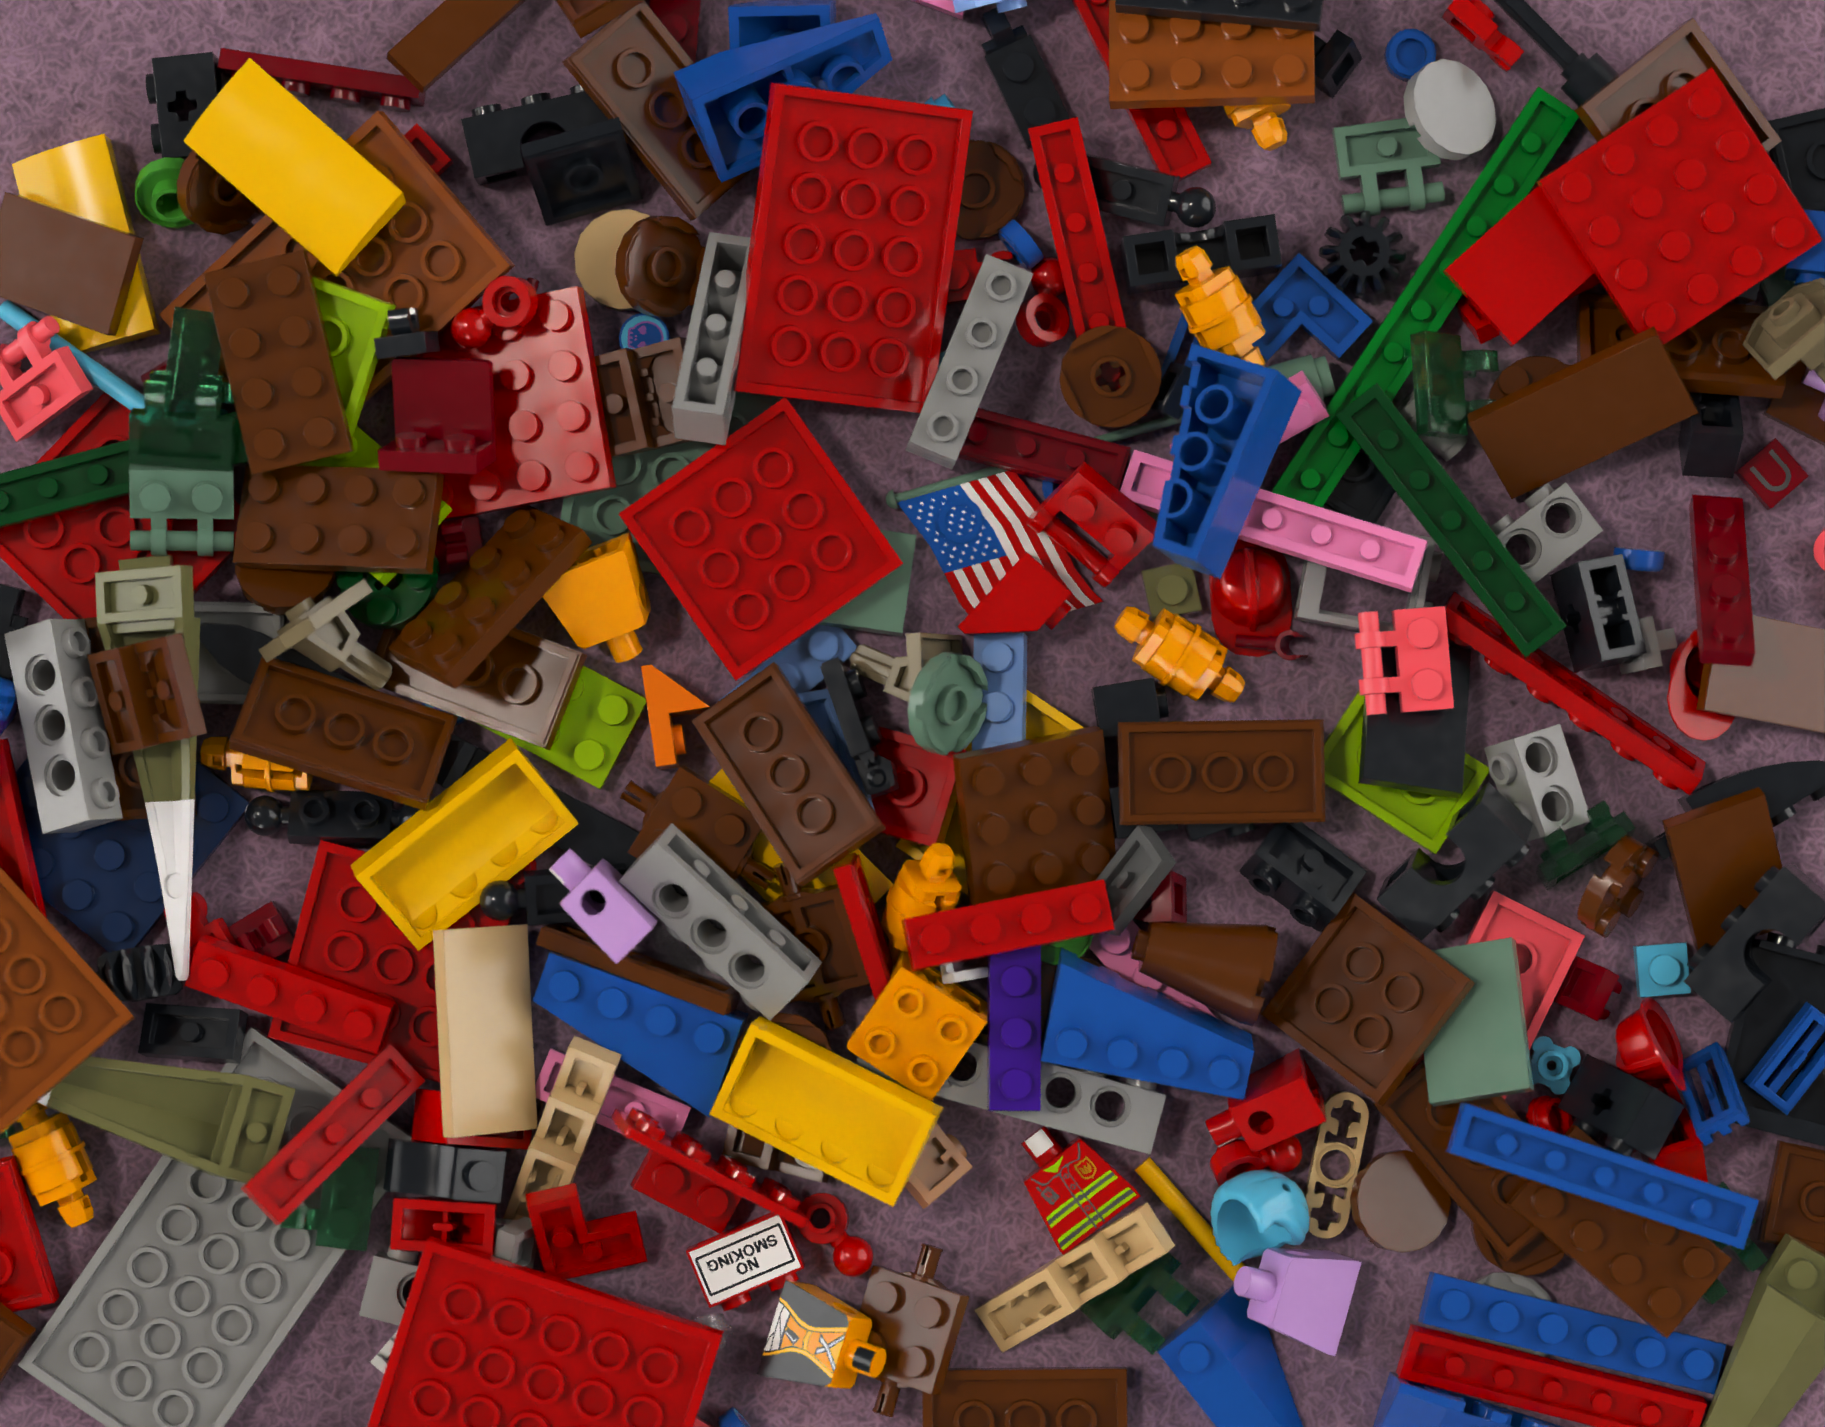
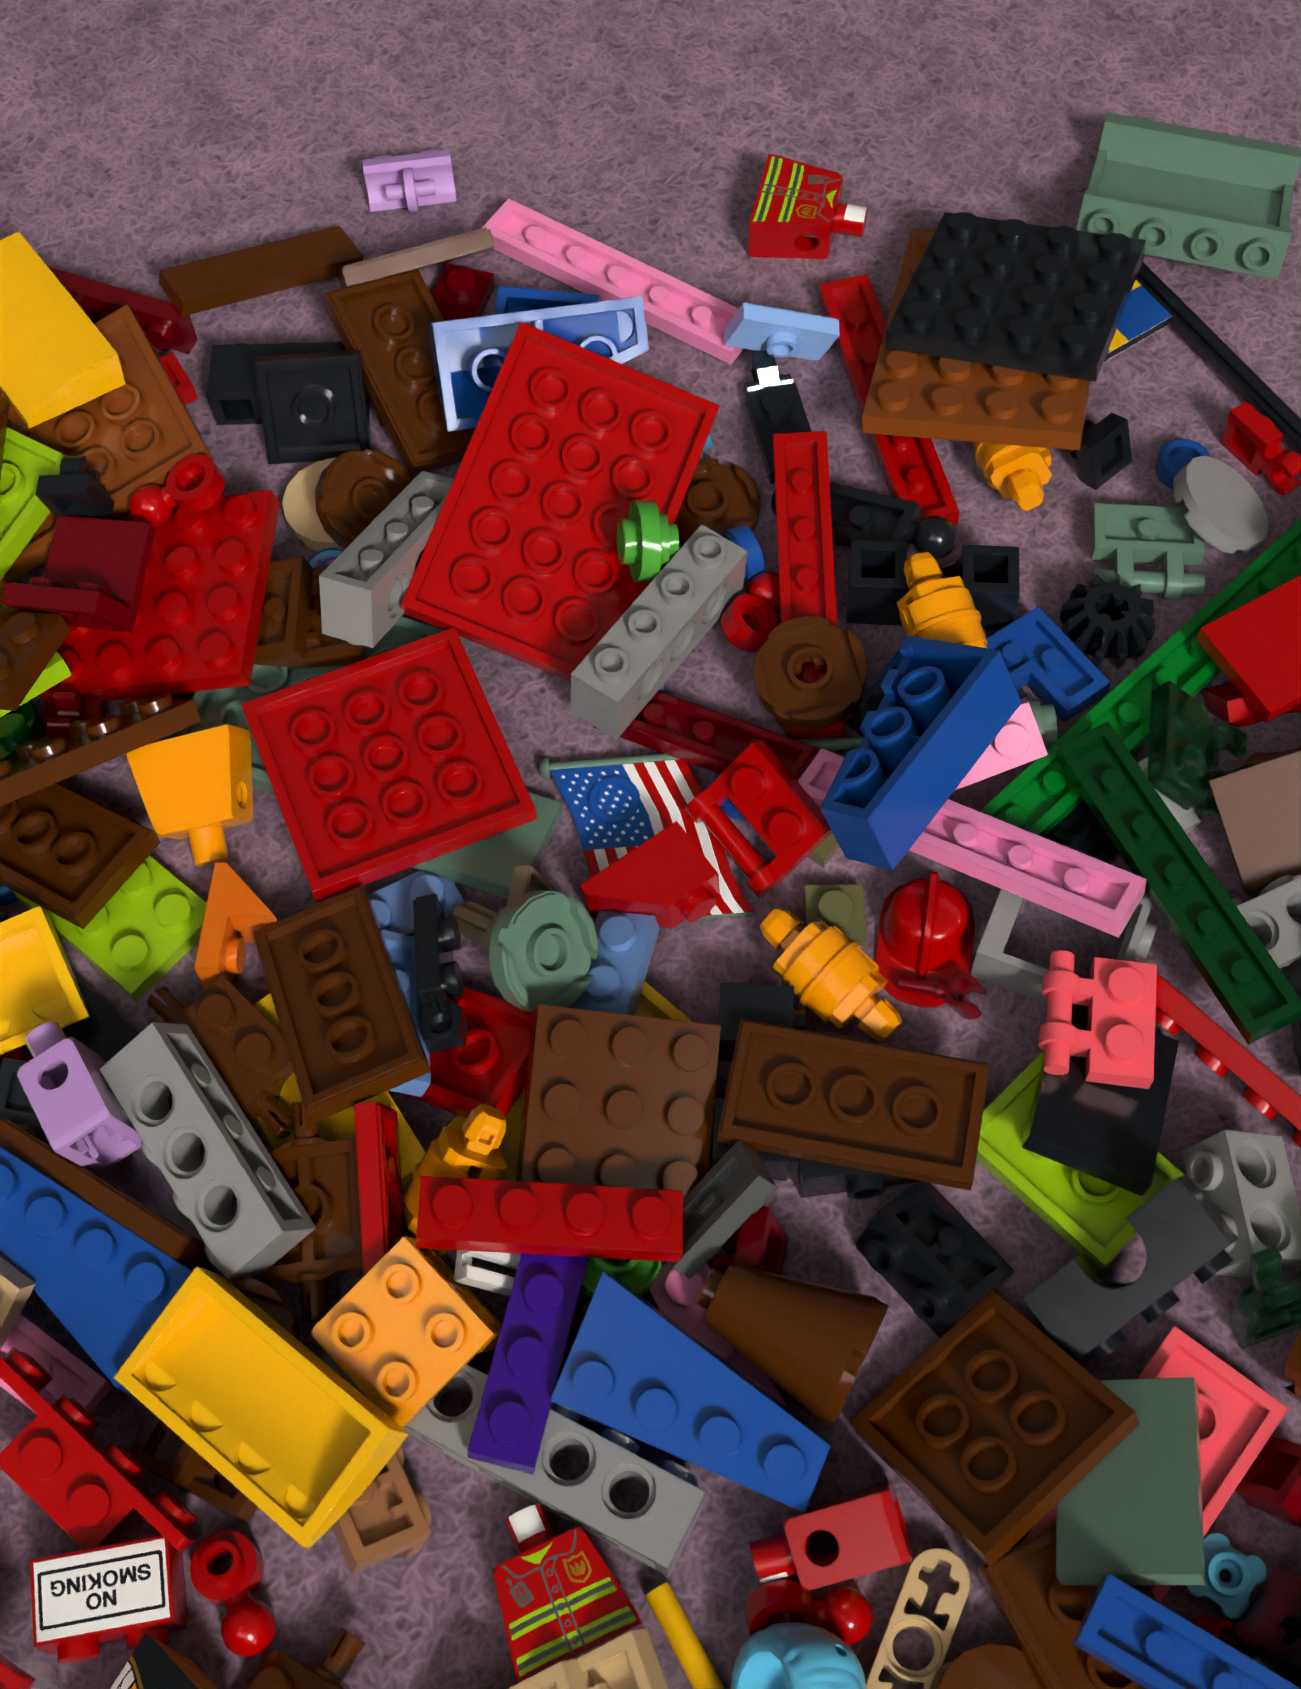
camera: 15 degrees right, 25 degrees down
(940, 283) = (646, 540): none -> bright green plate

